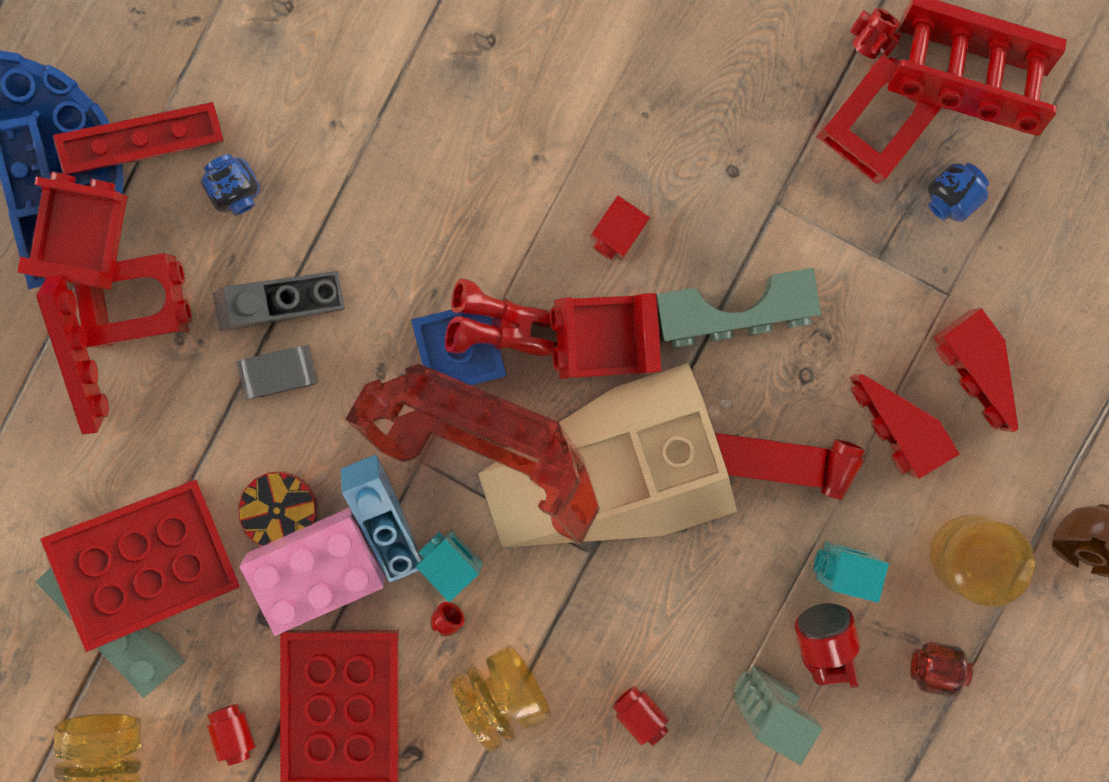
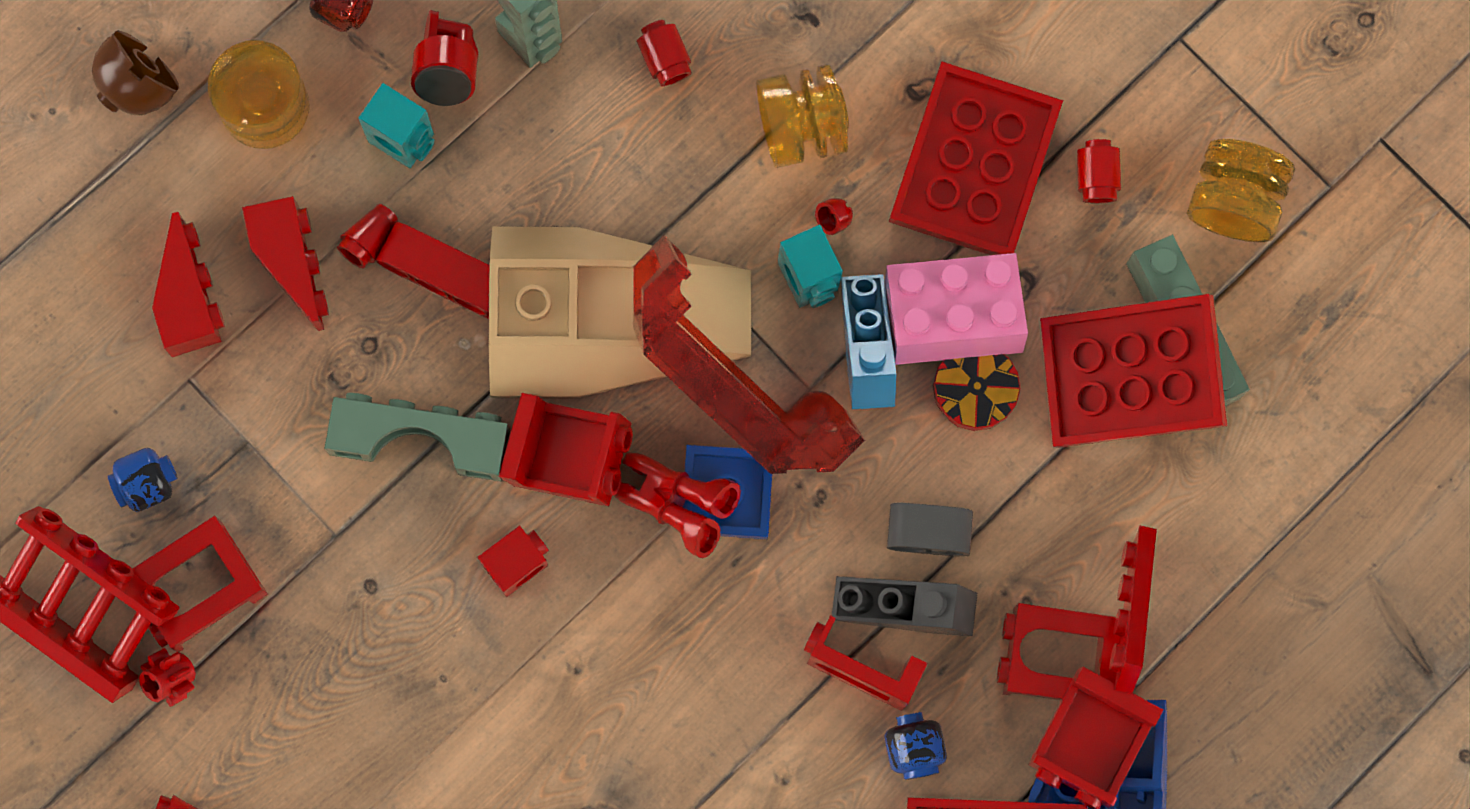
camera: 170 degrees left, 10 degrees down
(253, 225) = (878, 685): none -> red panel

